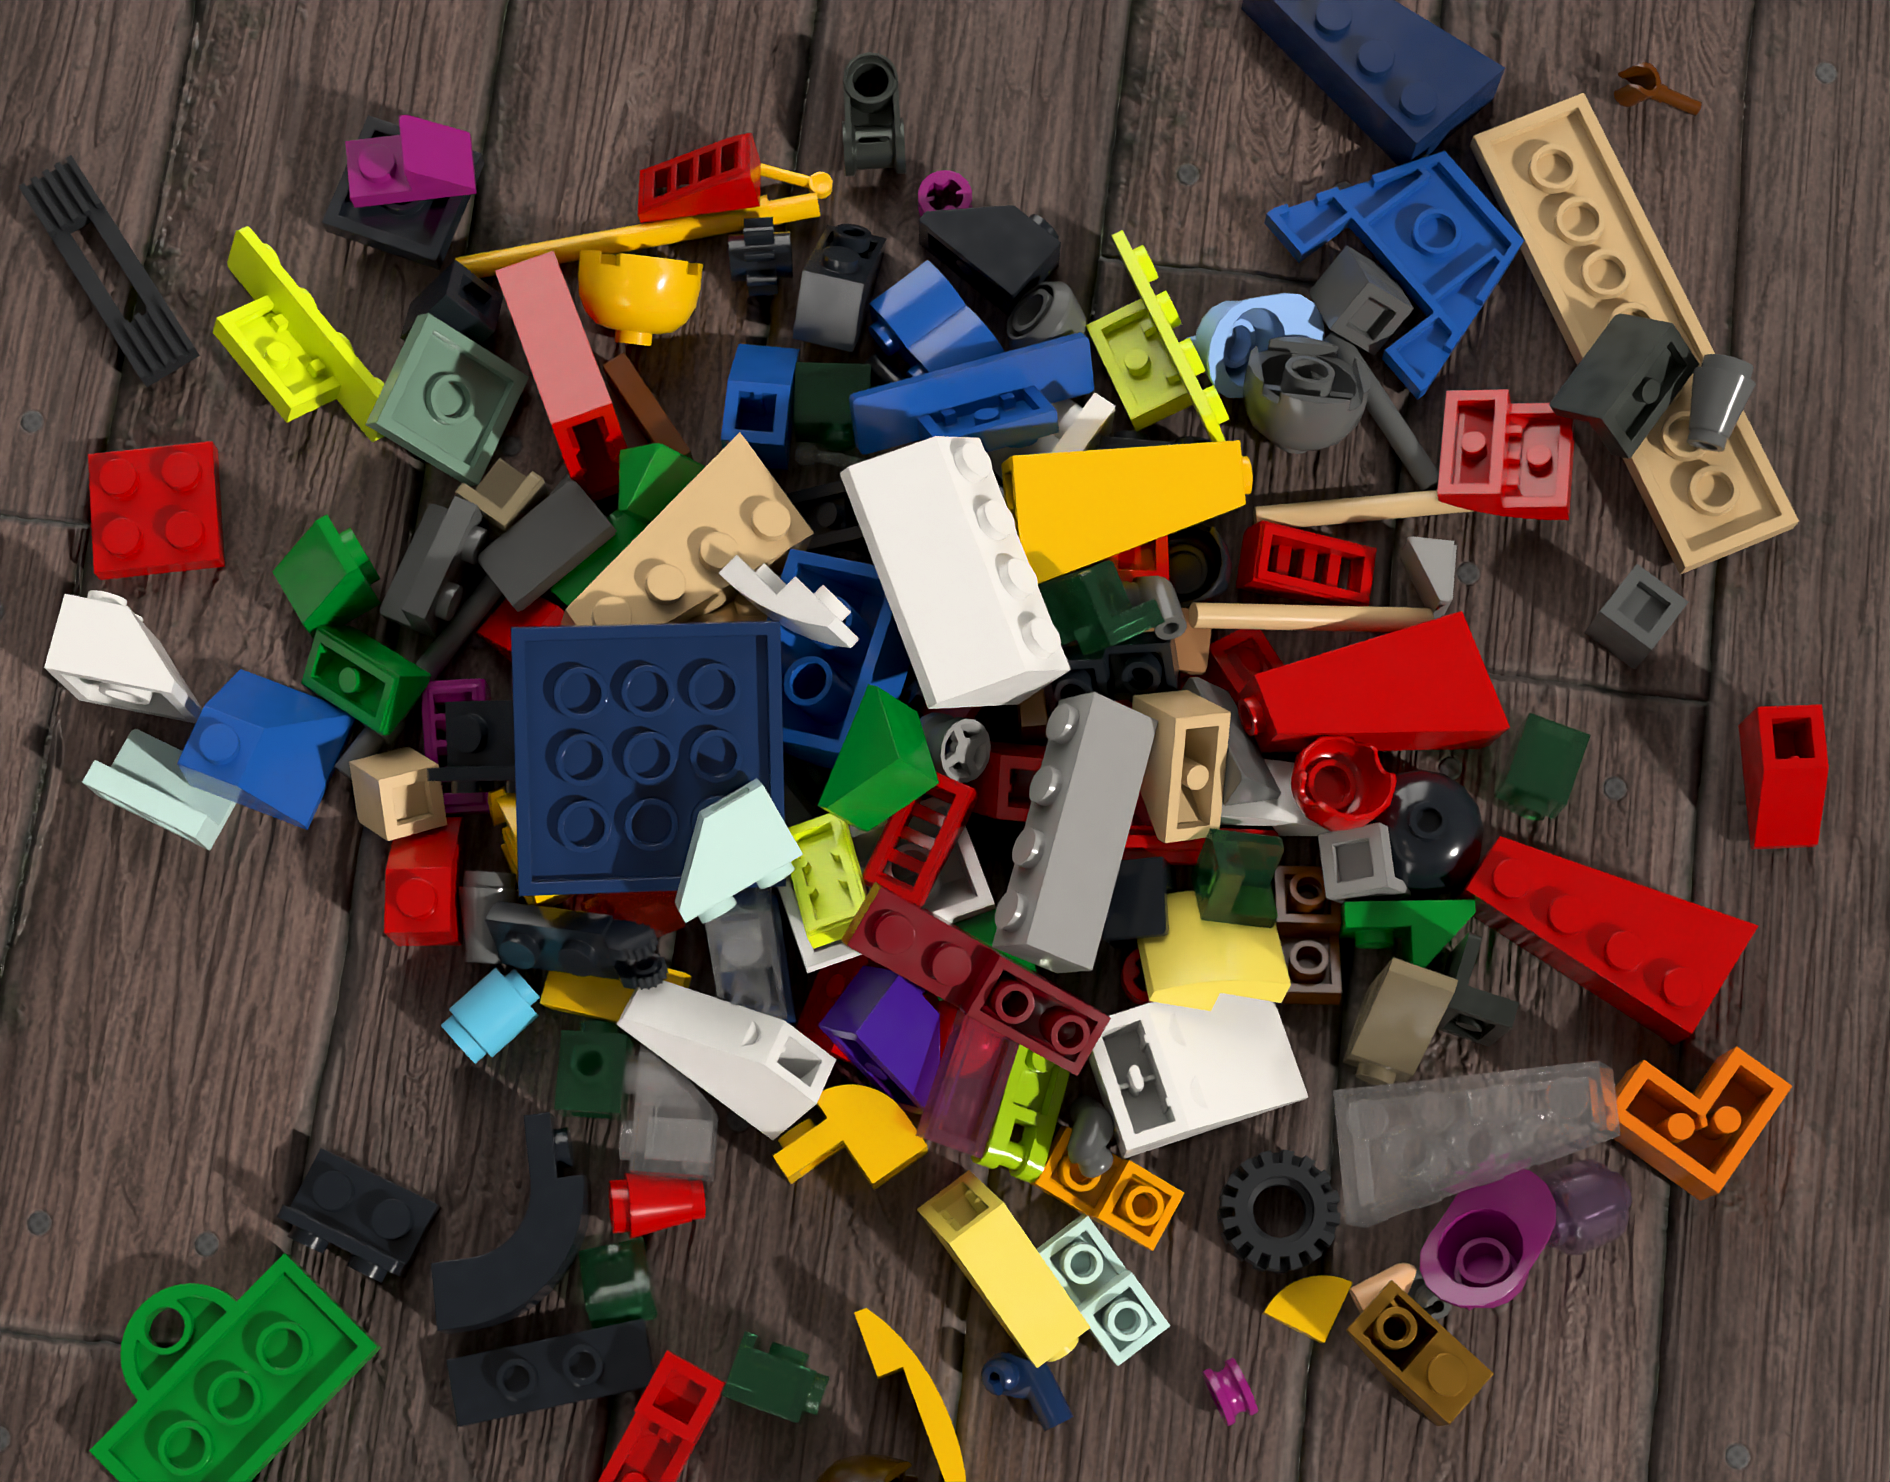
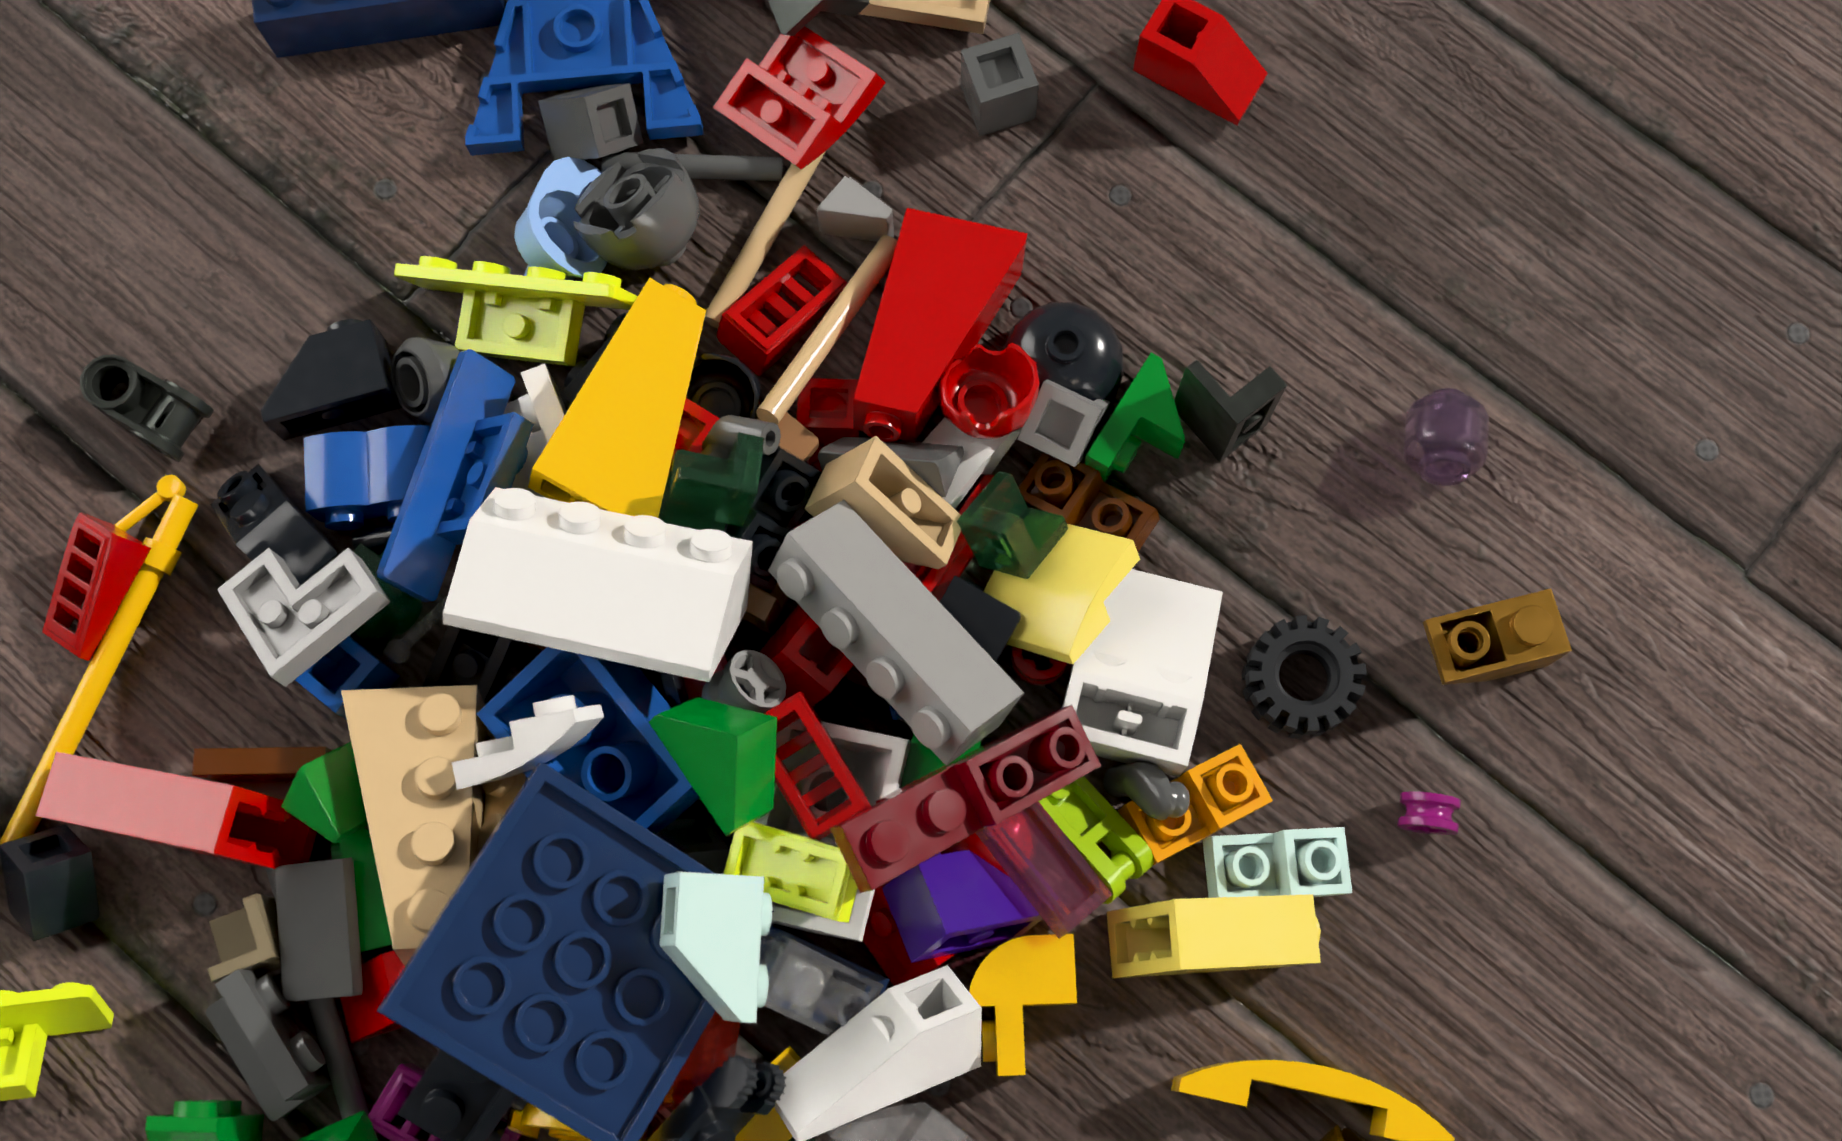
camera: 55 degrees left, 0 degrees up
(447, 400) = (121, 935): sand green plate -> none
(637, 293) = (149, 702): yellow cylinder -> none
(760, 256) = (193, 575): black gear -> none
(774, 365) = (296, 623): none -> light grey plate
(940, 184) = (244, 389): magenta bush -> none
(1017, 1377) = (1309, 983): dark blue arm -> none
(1309, 1305) = (1393, 702): yellow tile -> none
(1397, 1022) = (1216, 475): dark tan slope -> none
(1409, 1280) = (1430, 603): light nougat arm -> none
(1448, 1134) = (1336, 494): clear wedge -> none
(1489, 1241) = (1433, 522): magenta piece -> none
(1541, 768) = (1072, 234): clear green brick -> none
(1610, 935) = (1244, 270): red wedge -> none
(1698, 1134) = (1444, 306): orange brick -> none

